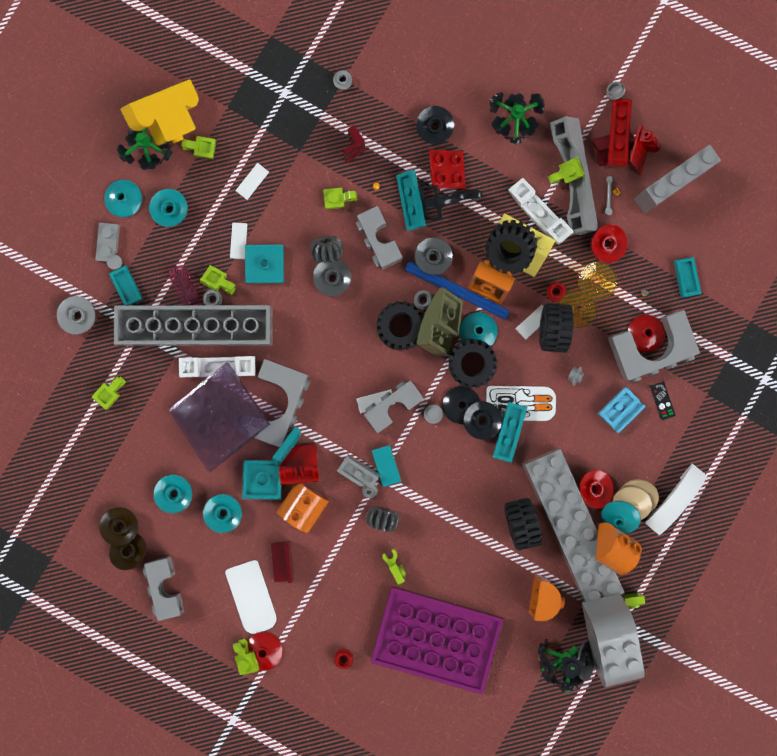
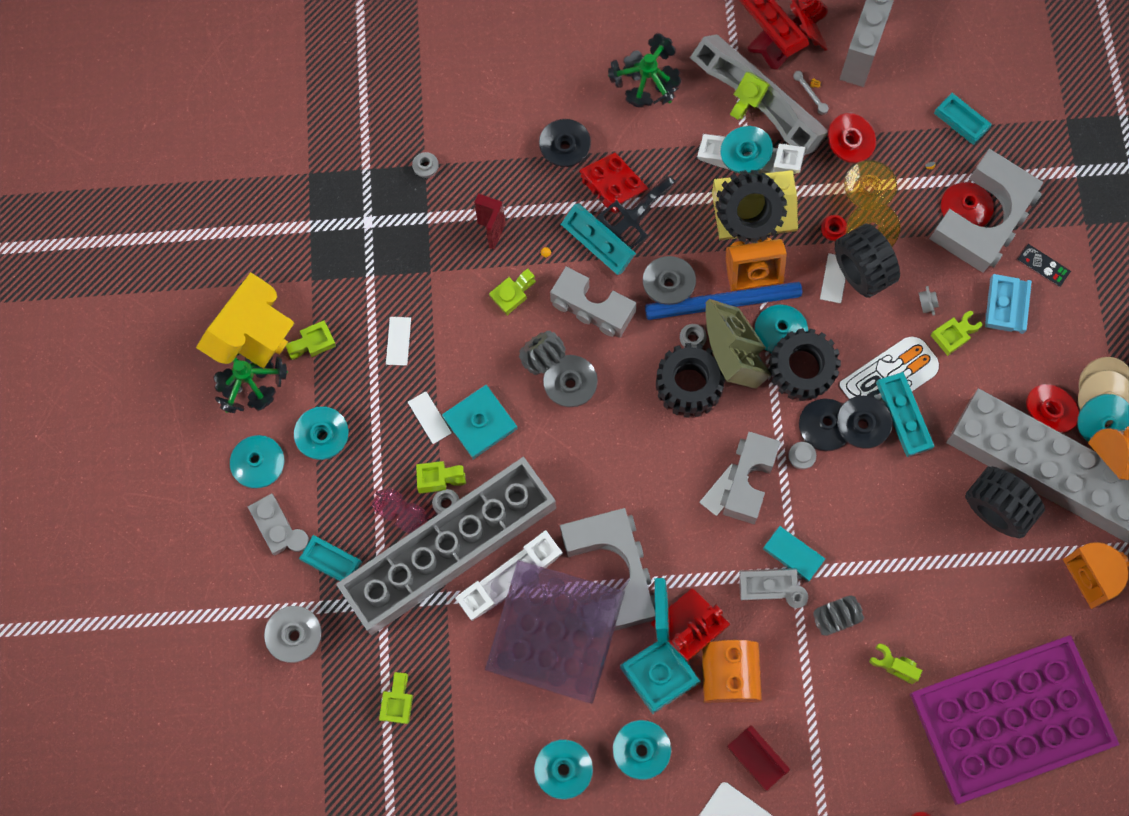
camera: 30 degrees left, 15 degrees down
(538, 199) = (746, 140): none -> teal dish
(574, 405) = (954, 334): none -> lime plate

